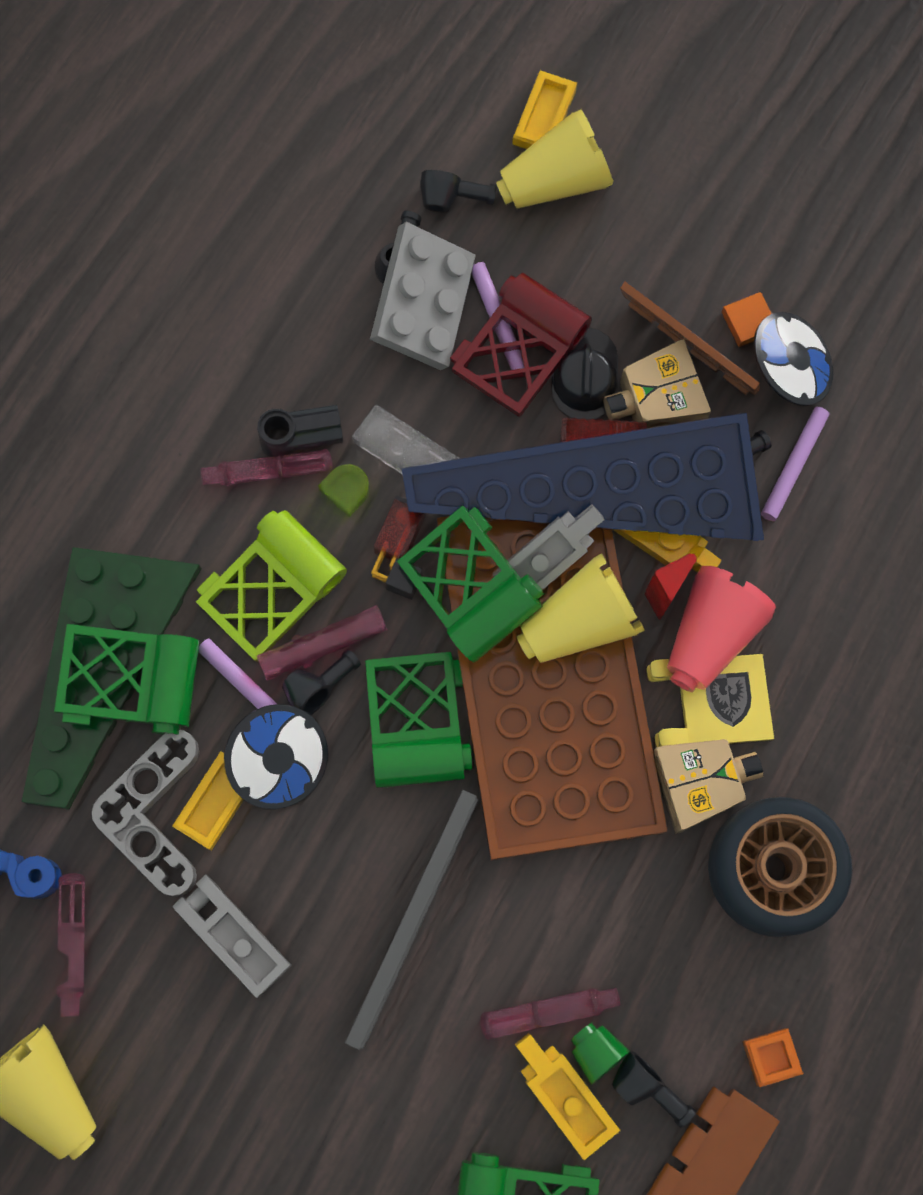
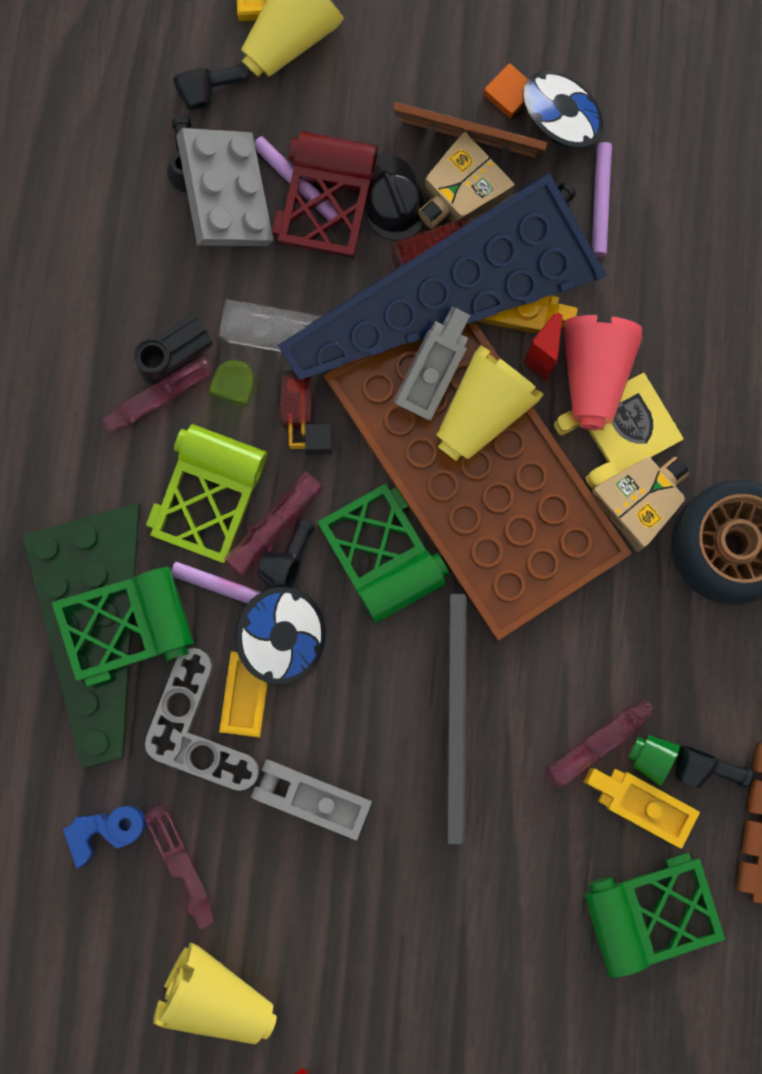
camera: 25 degrees left, 5 degrees up
(491, 611) = (411, 426): green piece -> none

